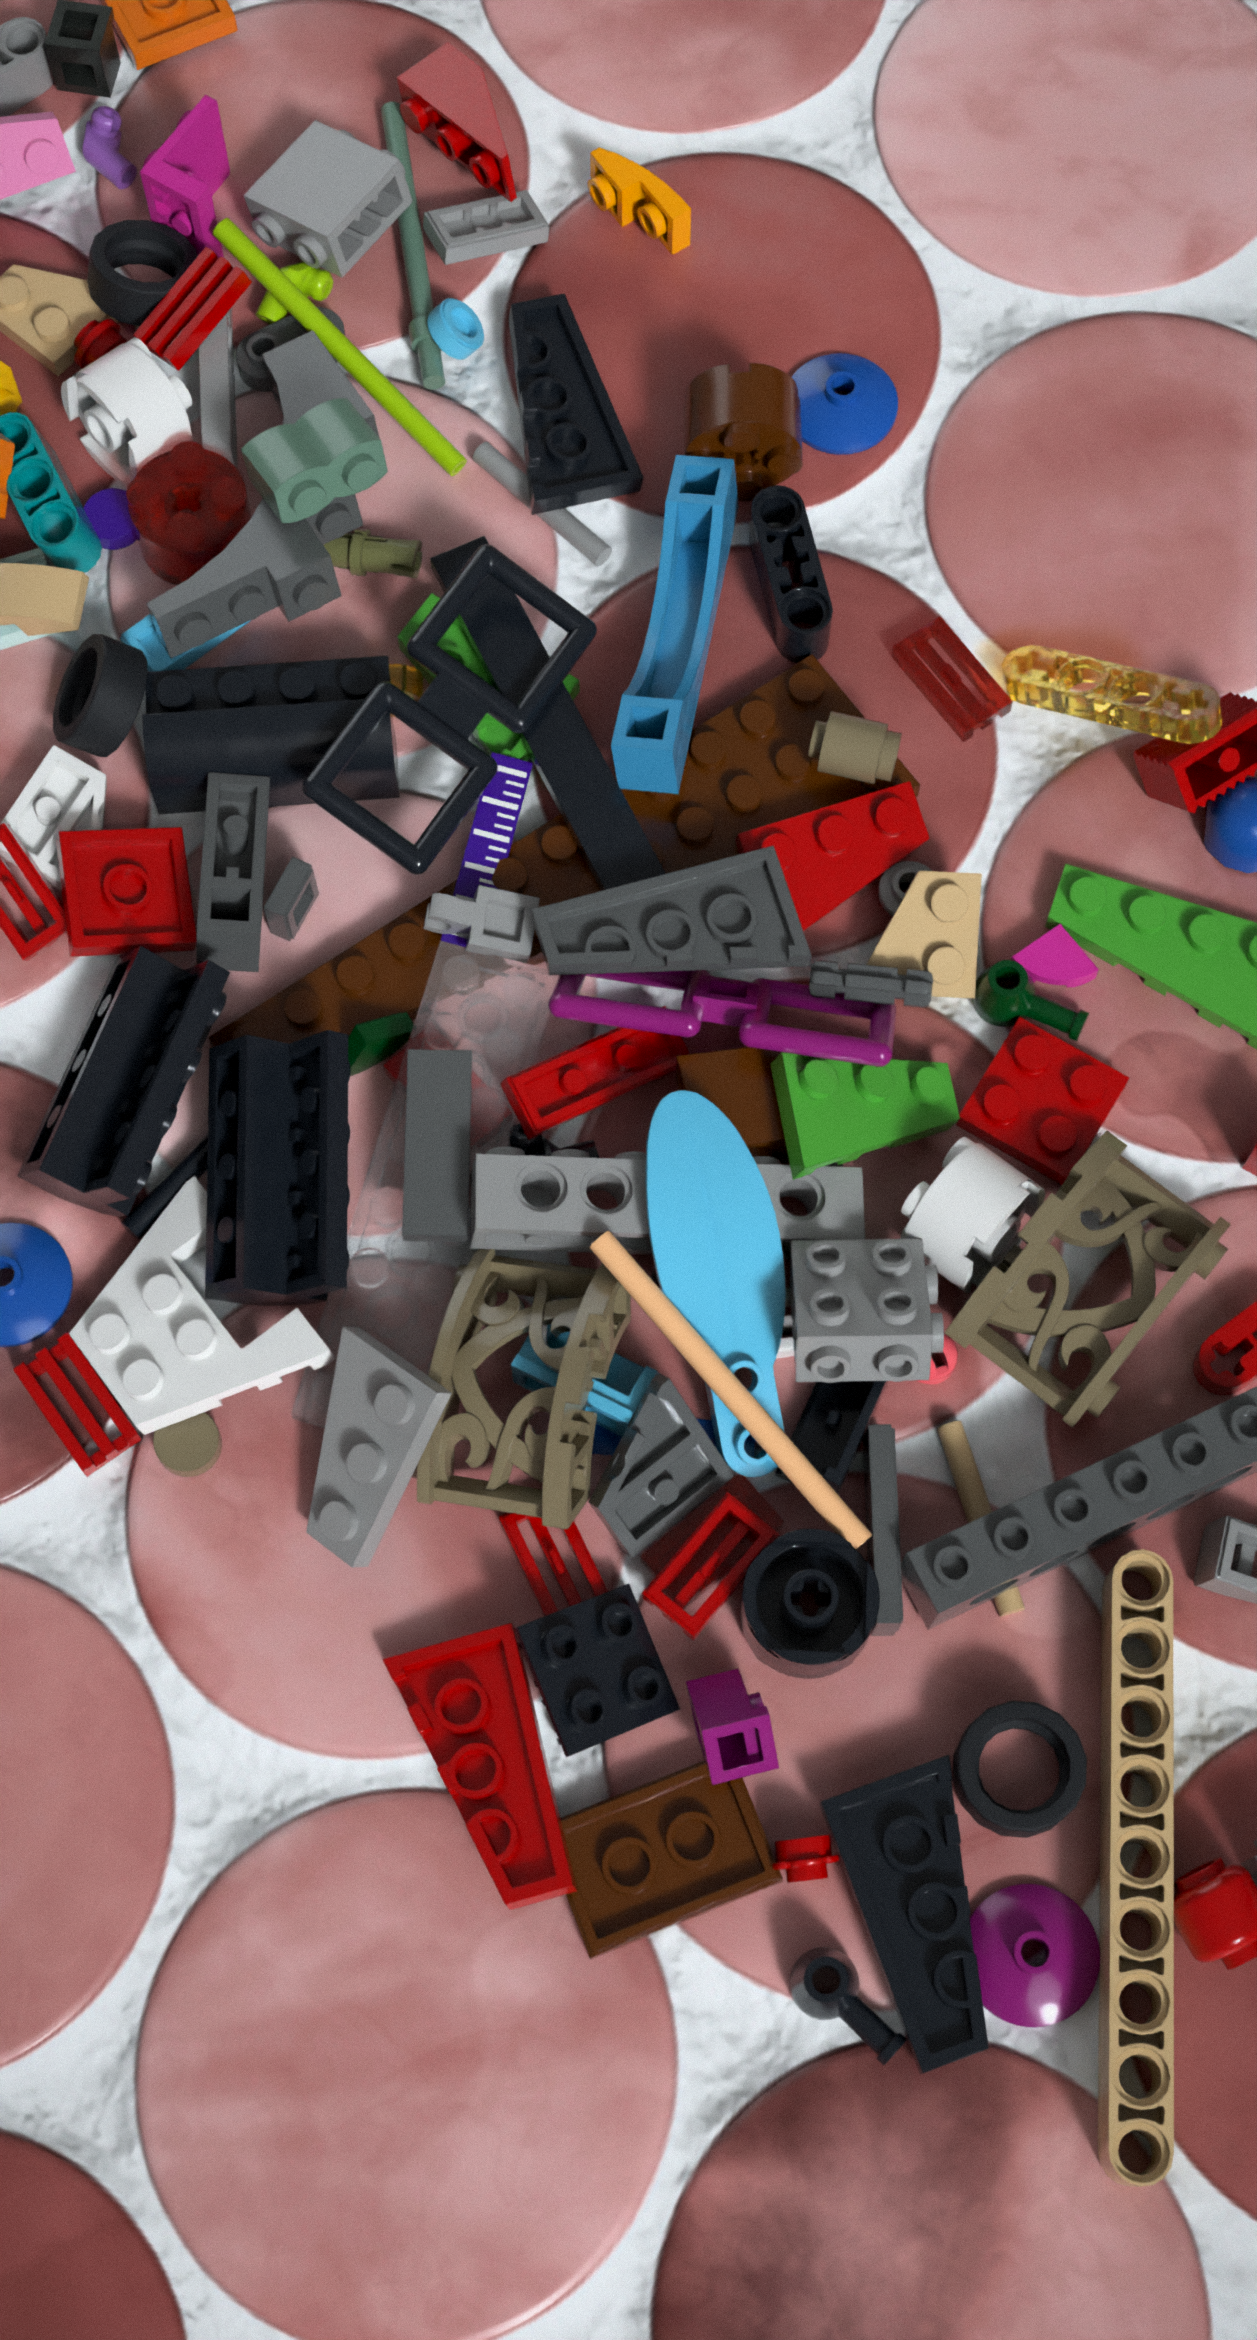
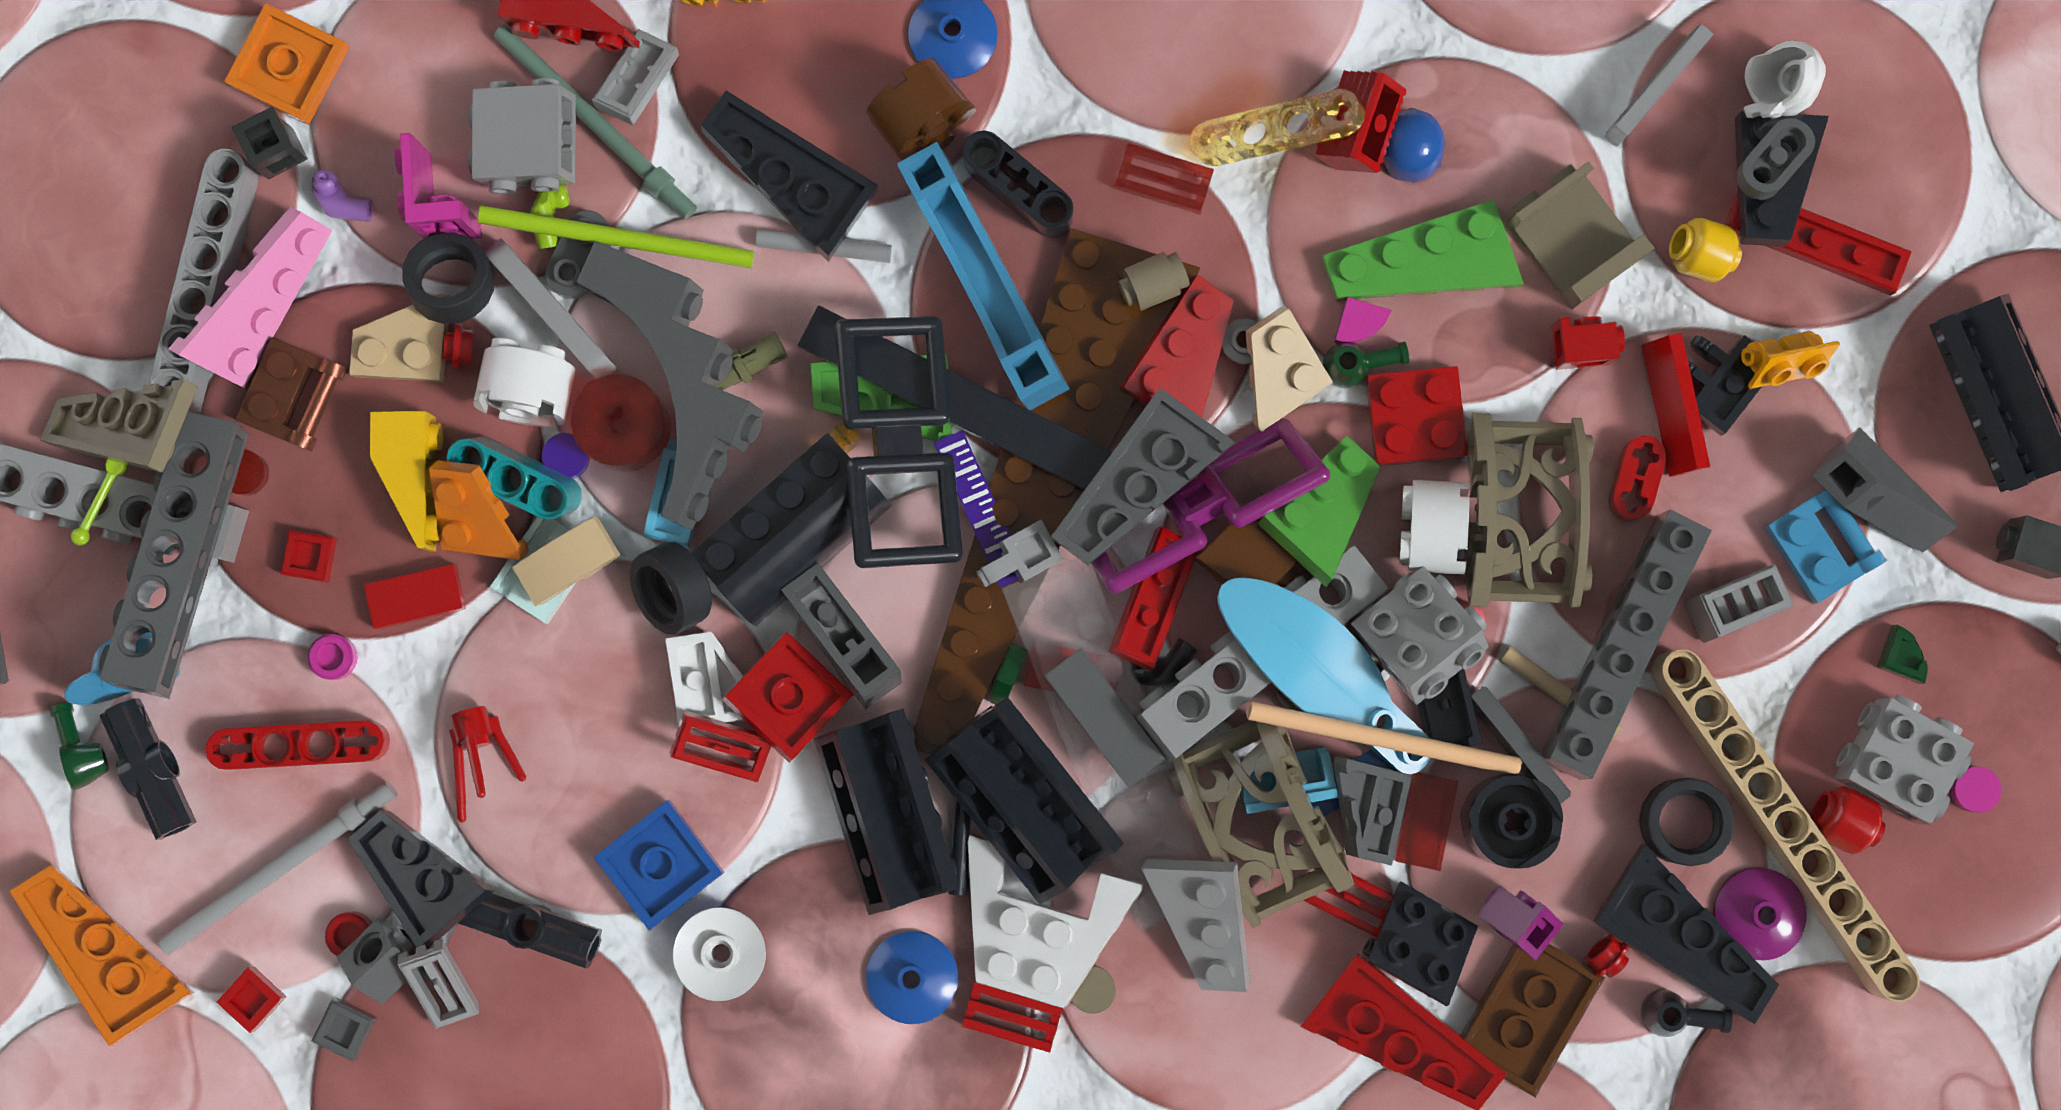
camera: 35 degrees left, 15 degrees up
(186, 304) = (499, 284): red tile -> none
(291, 899) = (888, 625): dark grey tile -> none
(314, 460) = (690, 346): sand green brick -> none
(455, 328) = (676, 165): medium azure tile -> none
(674, 1609) = (1421, 849): red tile -> none
(871, 983) = (1271, 423): dark grey axle -> none

